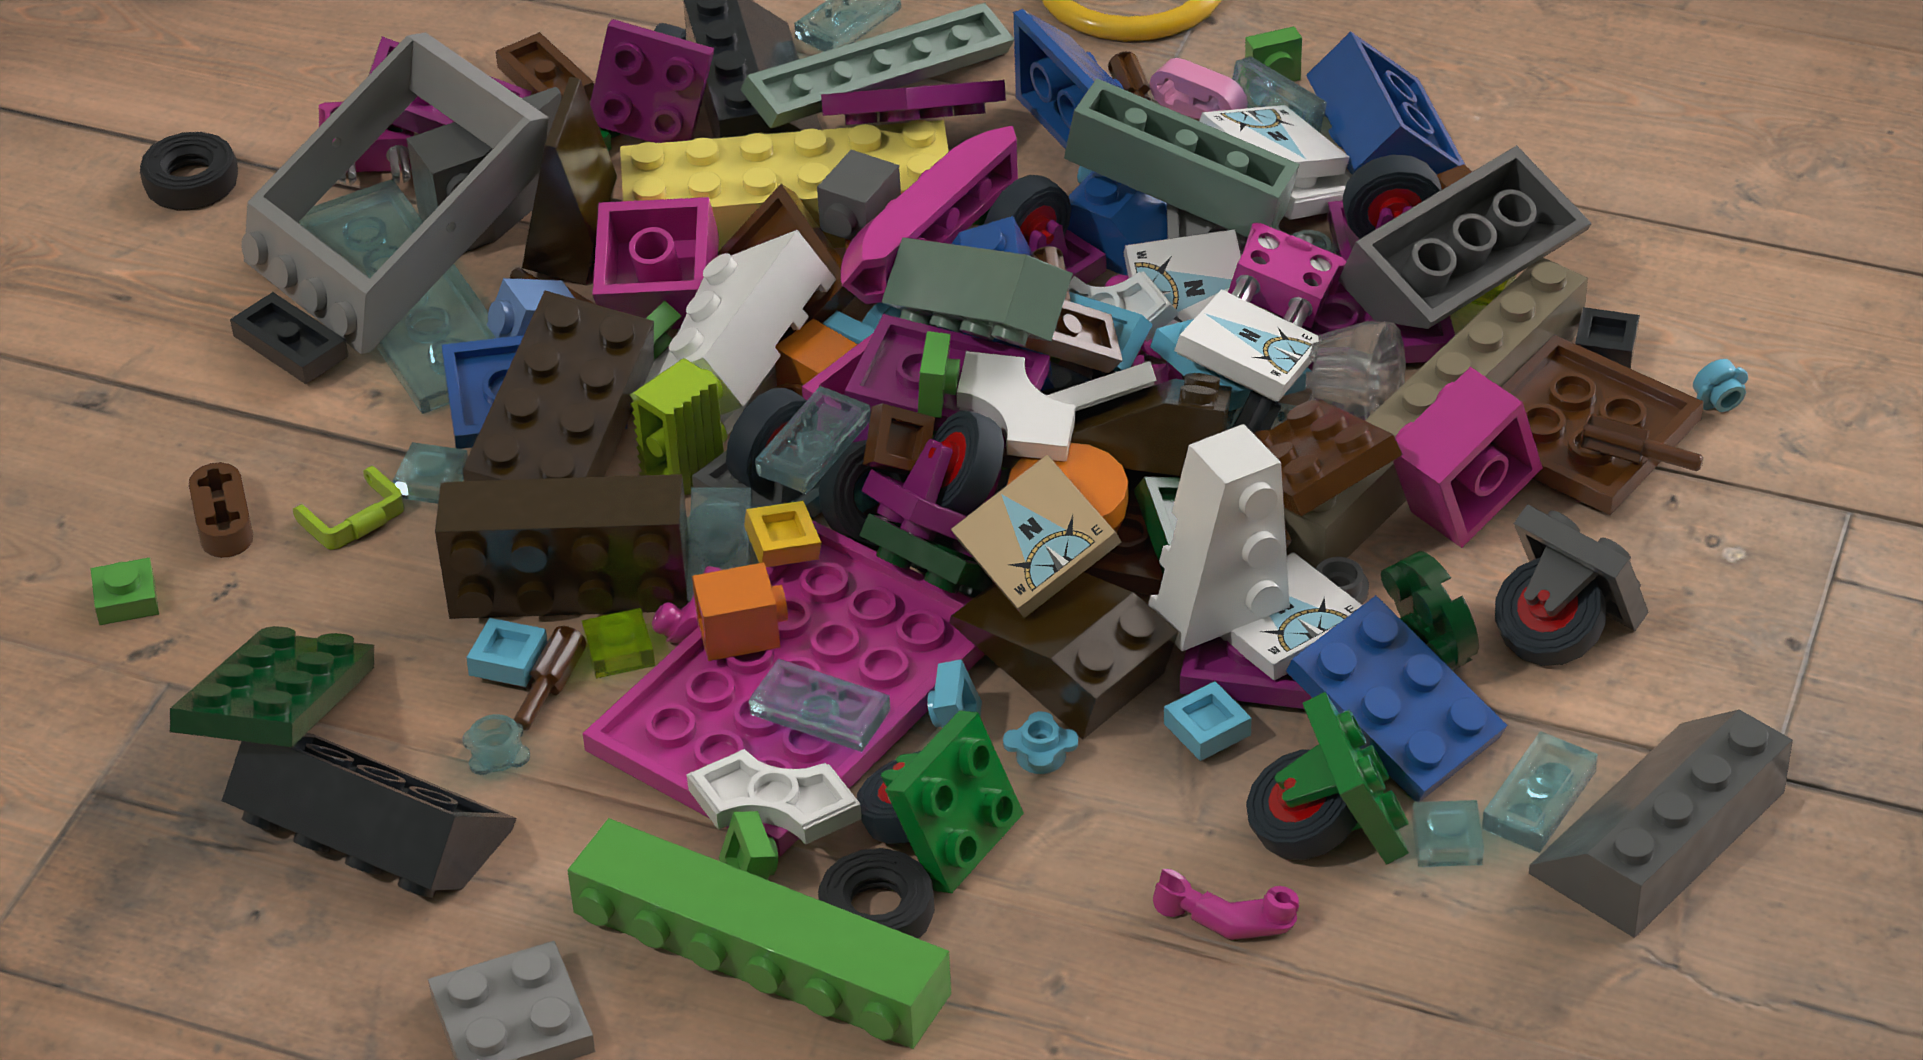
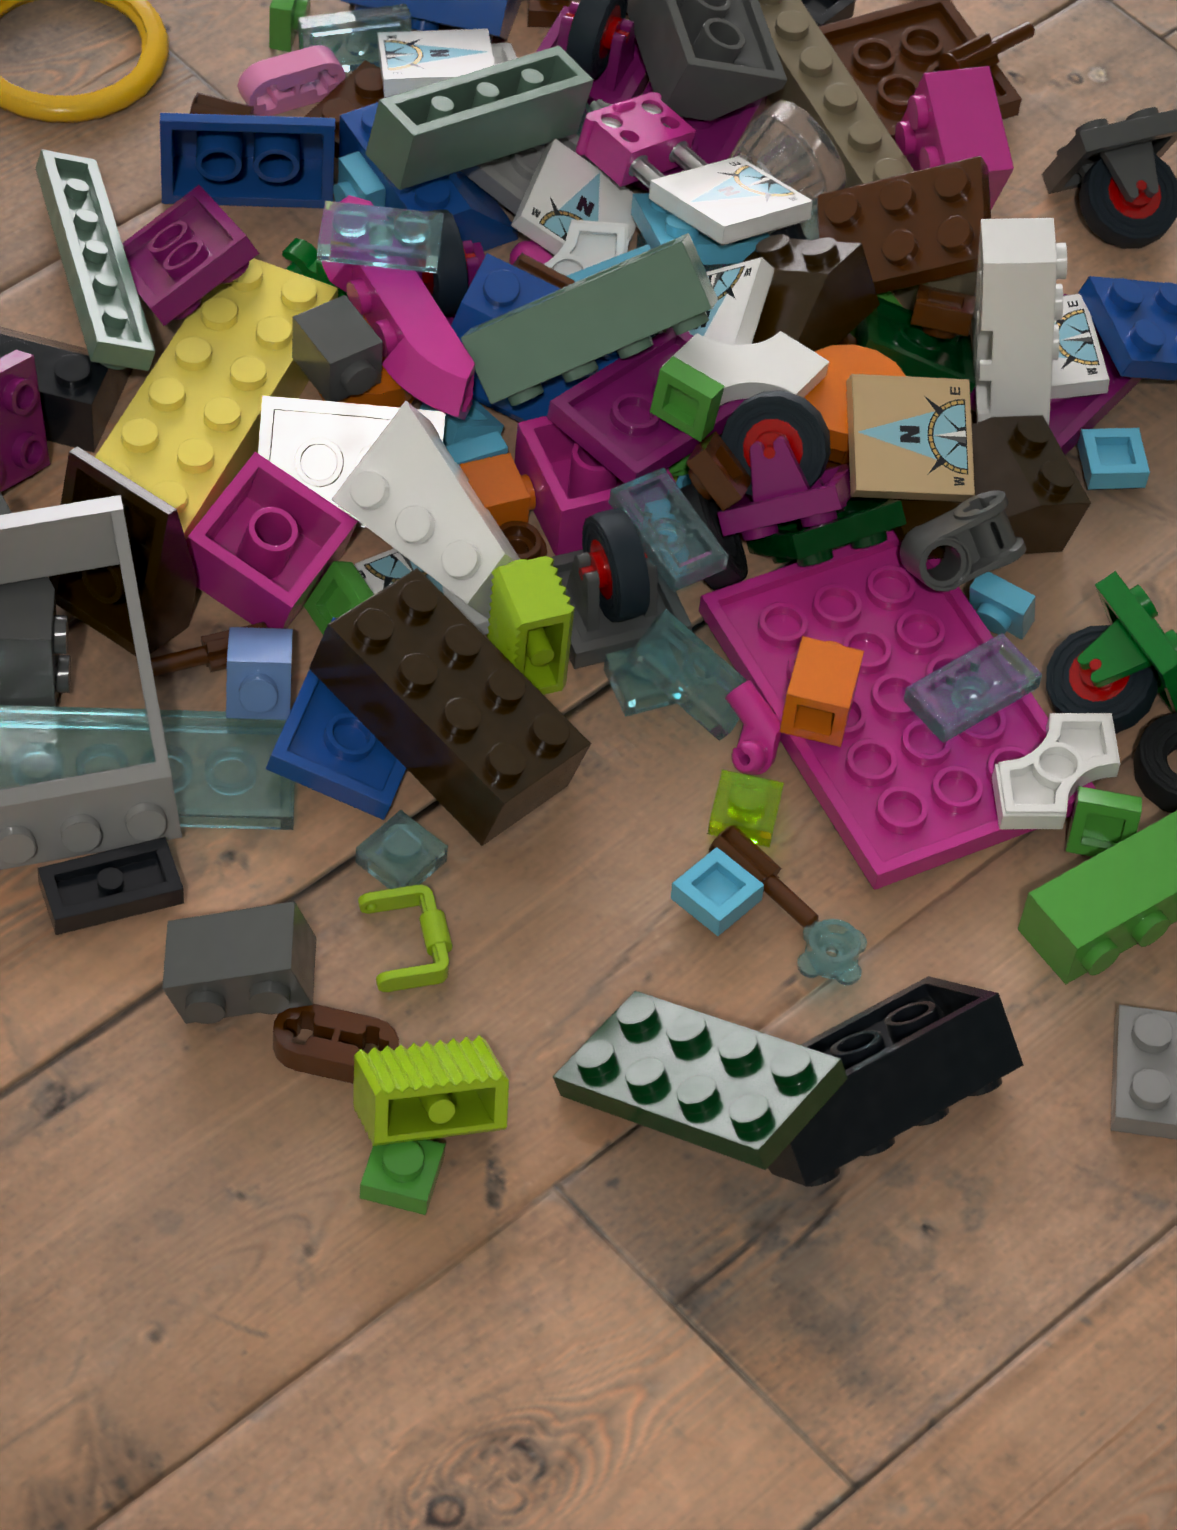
camera: 70 degrees left, 10 degrees up
(184, 559) = (430, 1091): none -> lime brick
(240, 416) = (239, 963): none -> dark grey brick
(562, 545) = (640, 781): dark brown brick -> none
(782, 534) = (734, 617): yellow plate -> none
(958, 627) = (974, 538): none -> dark grey piece
(971, 153) = (380, 236): none -> clear light blue plate
(1040, 743) = (1066, 575): medium azure plate -> none
(1428, 609) = (1134, 251): dark green plate -> none

